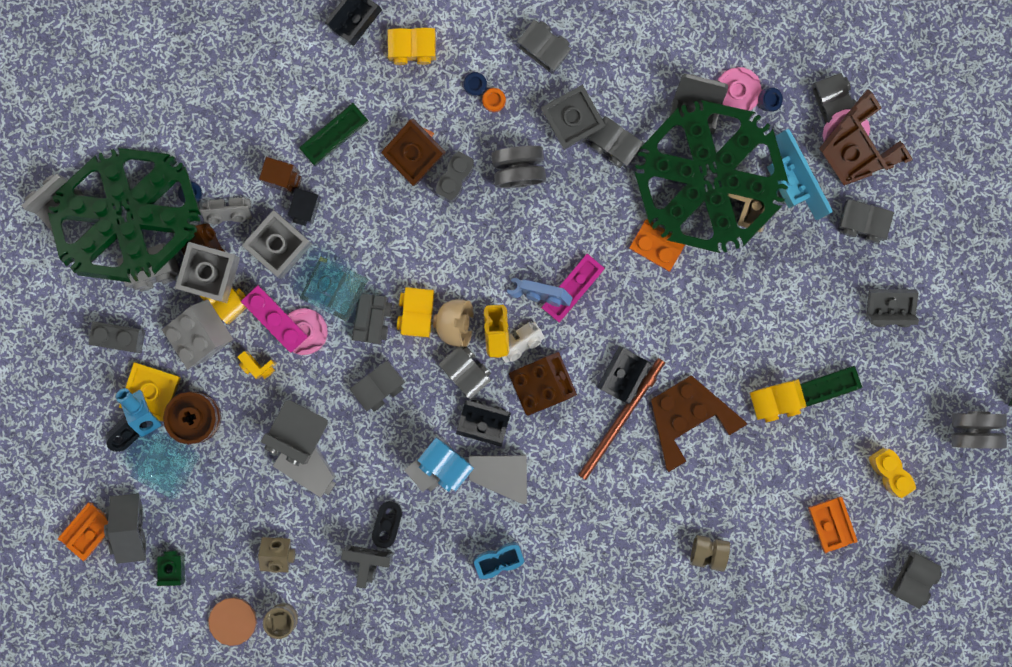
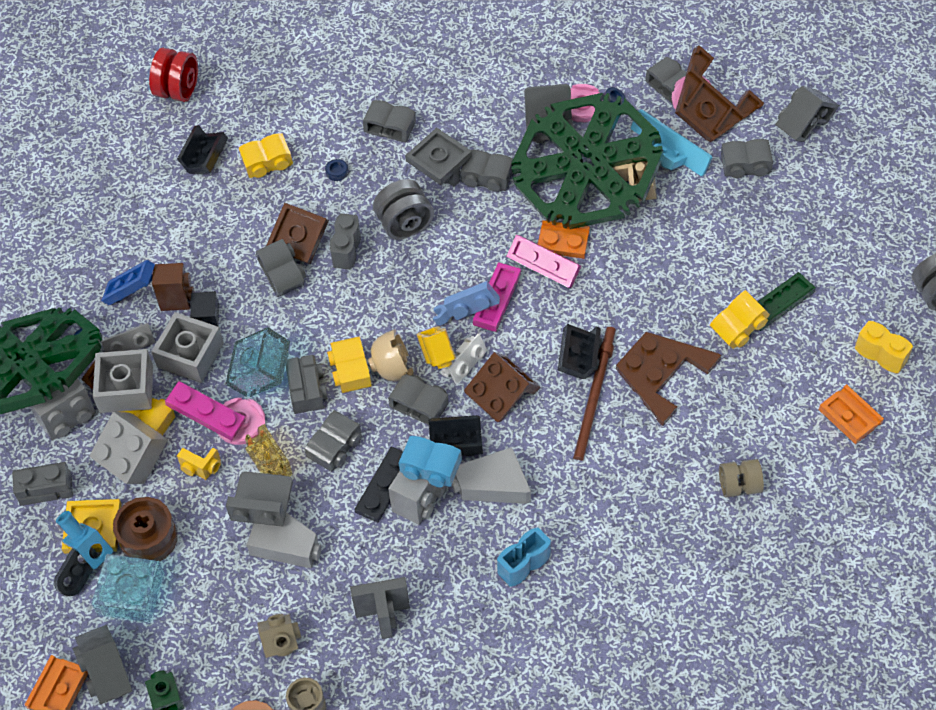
camera: 15 degrees left, 30 degrees down
(240, 158) = (128, 282): none -> blue plate
(317, 380) = (267, 453): none -> clear yellow hinge
(333, 134) = (214, 246): dark green plate -> none
(385, 186) = (280, 267): none -> dark grey brick
(386, 523) = (389, 569): black plate -> none
(408, 441) = (376, 496): none -> black plate
(494, 100) = (359, 176): orange tile -> none
(629, 266) = (543, 261): none -> plate
(892, 307) = (807, 213): dark grey bracket -> none
(948, 192) = (804, 112): none -> dark grey brick

